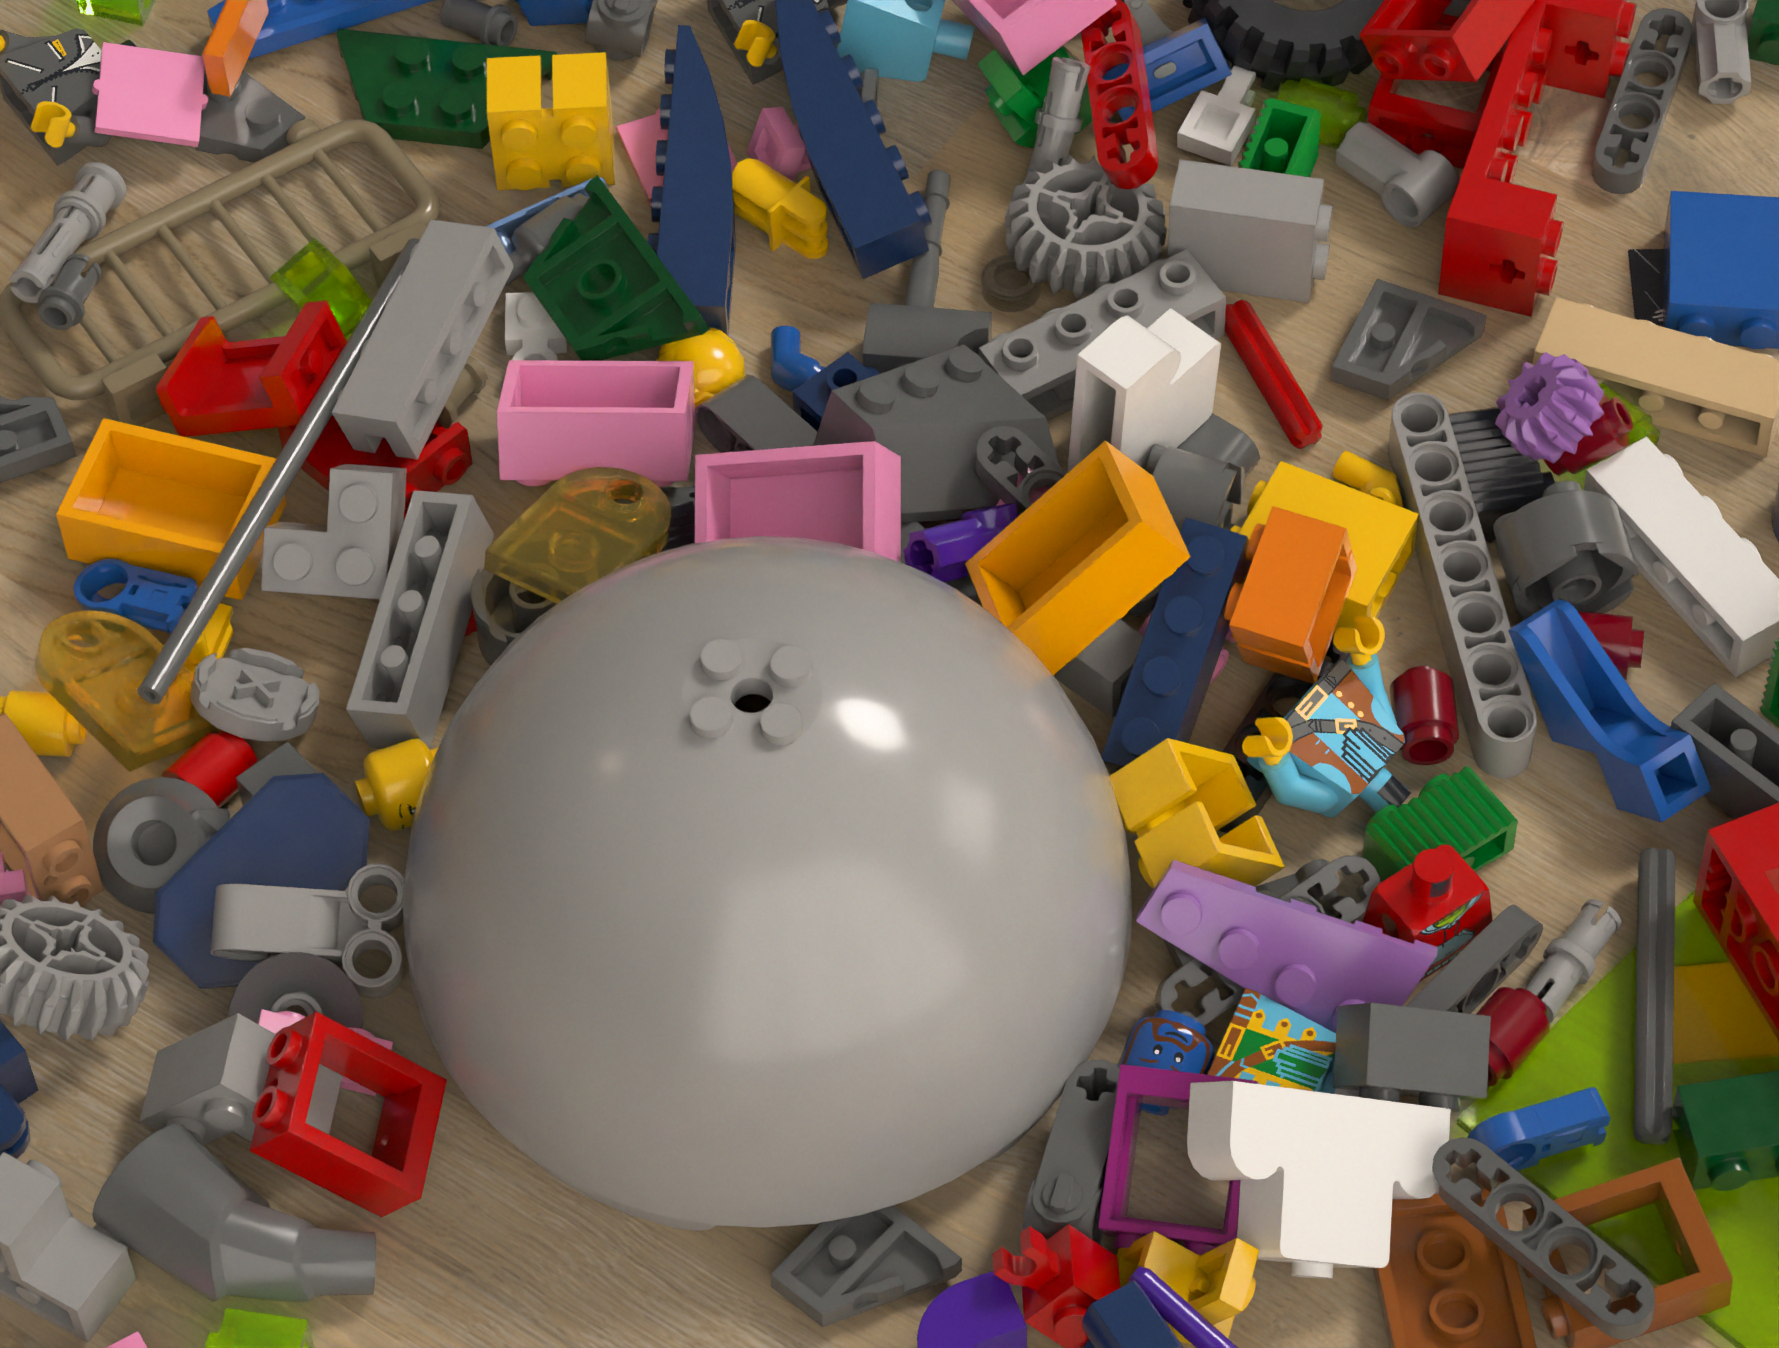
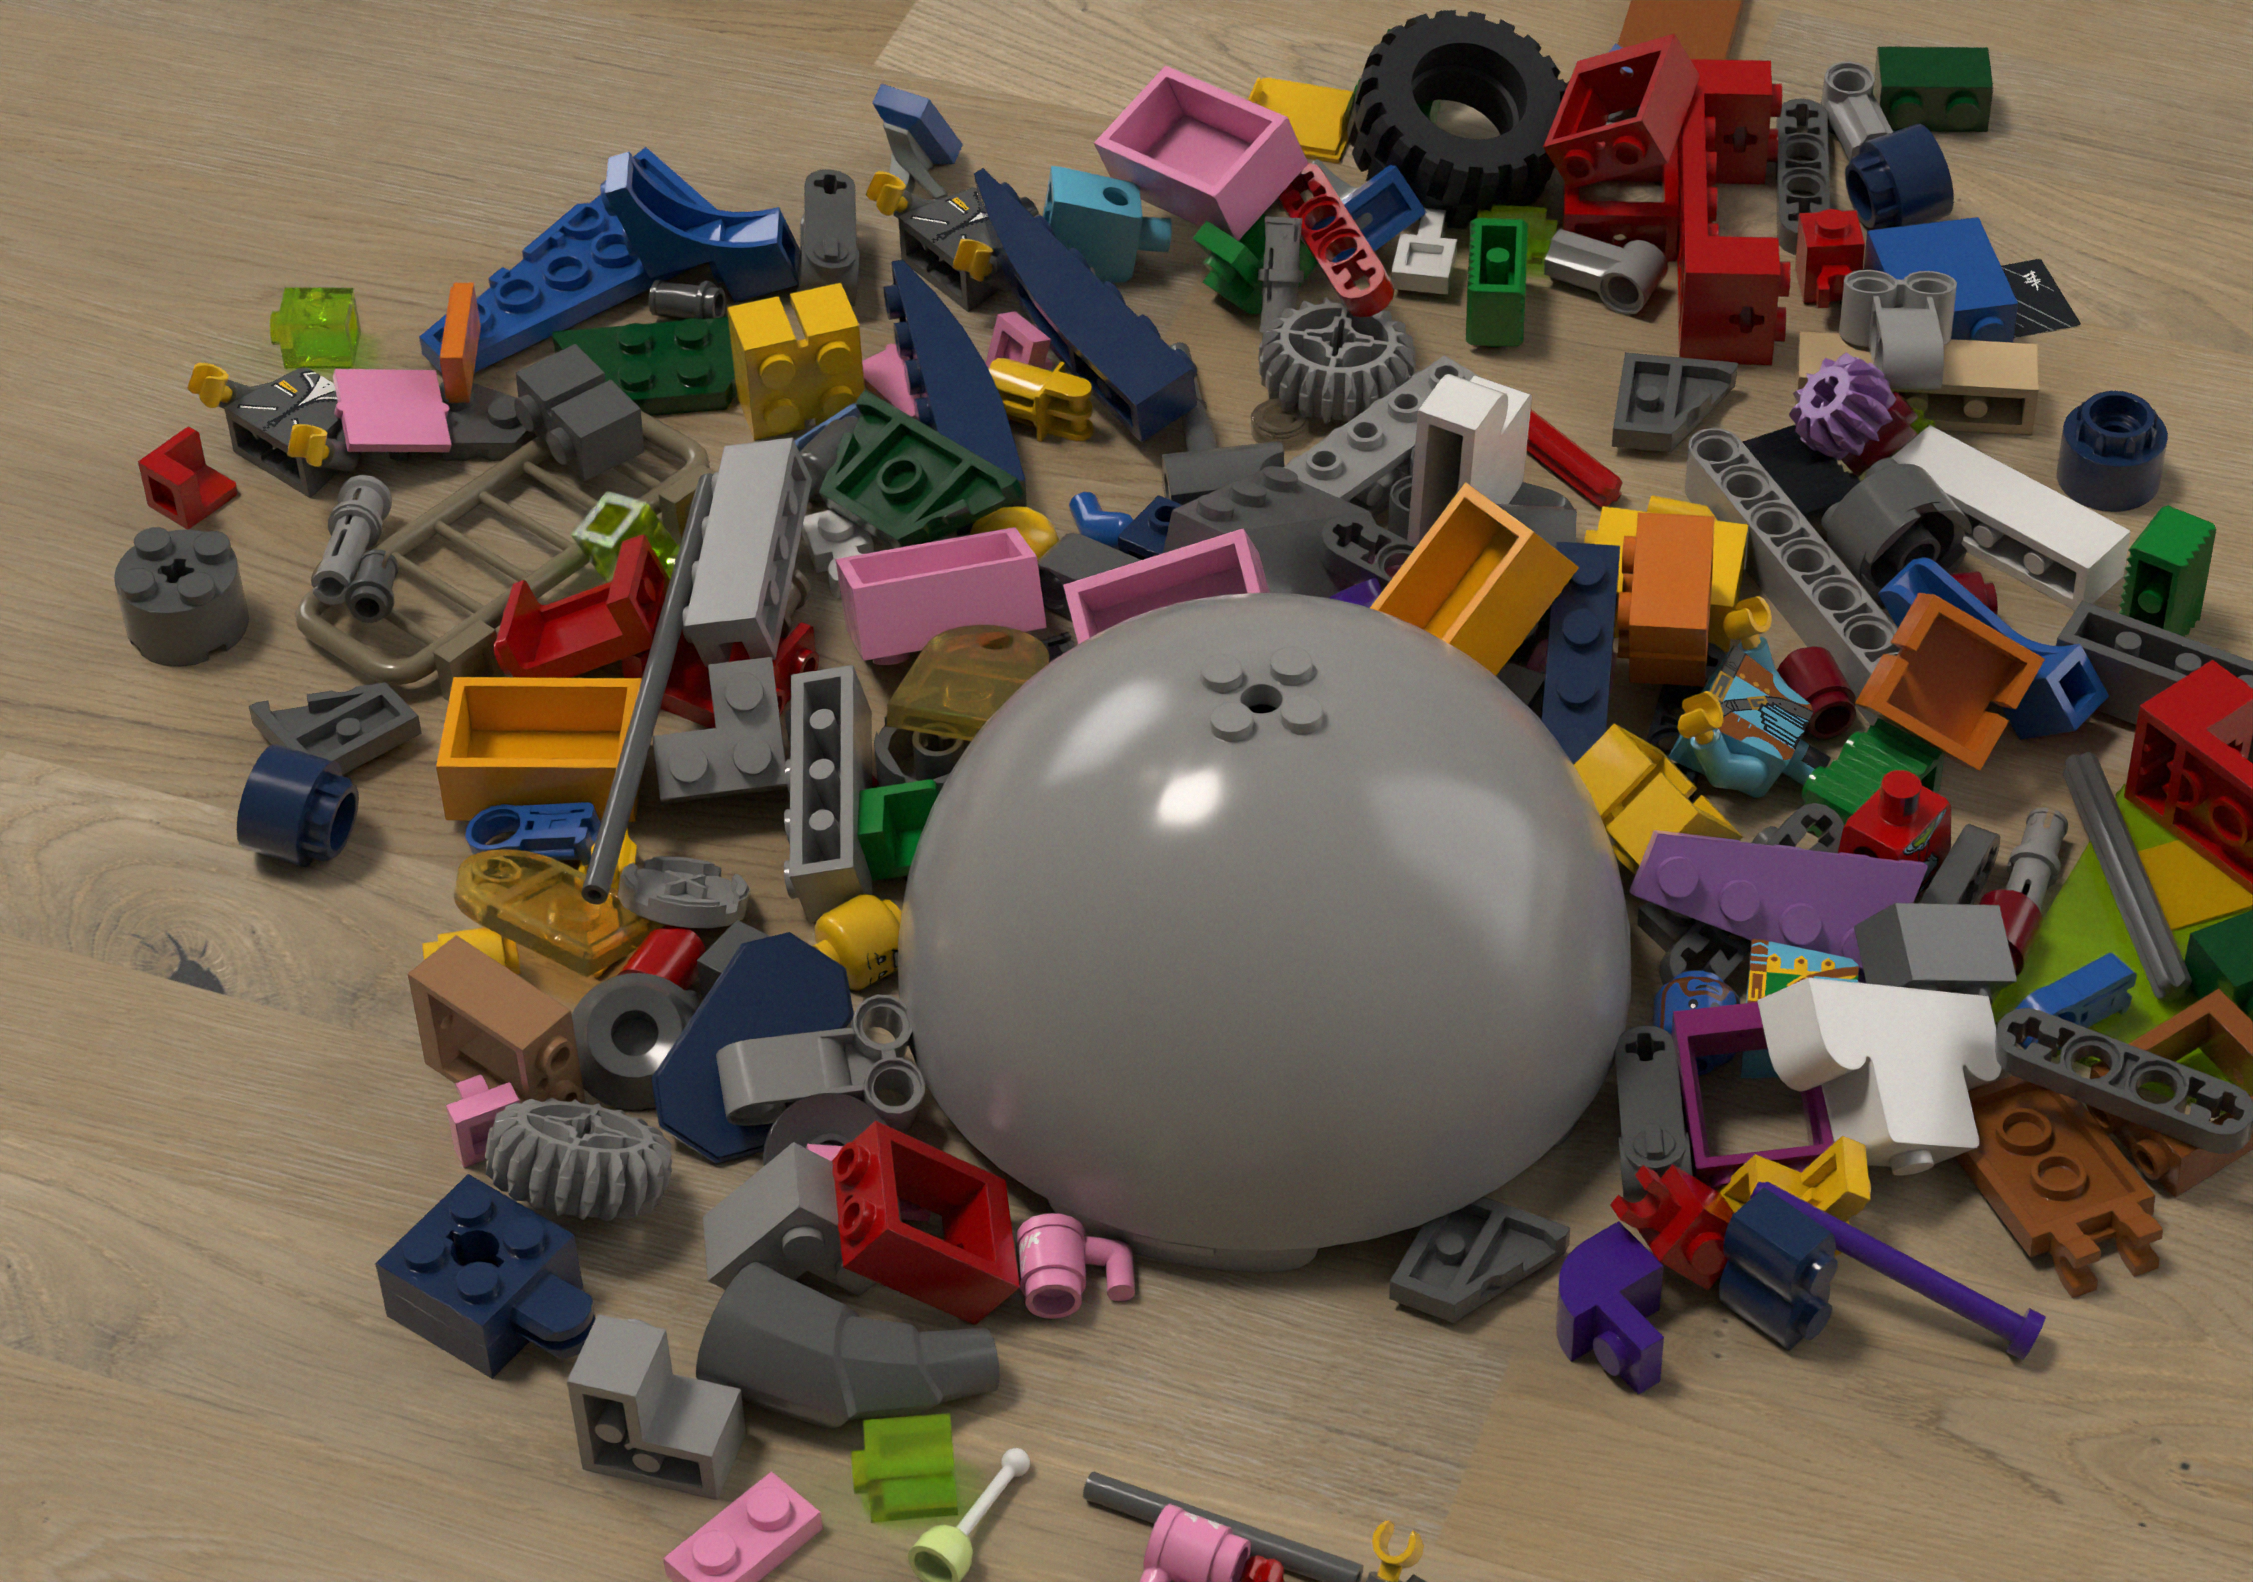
camera: 15 degrees left, 10 degrees down
(323, 143) = (580, 424): none -> dark grey piece
(459, 664) = (892, 824): none -> green panel
(467, 1178) = (1054, 1261): none -> bright pink piece
(1251, 228) = (1500, 324): light grey brick -> none
(1535, 748) = (1947, 678): none -> orange piece
(1626, 211) = (1826, 252): none -> red brick
(1649, 318) = (1901, 323): none -> light grey piece
(1730, 134) = (1900, 180): none -> dark blue piece

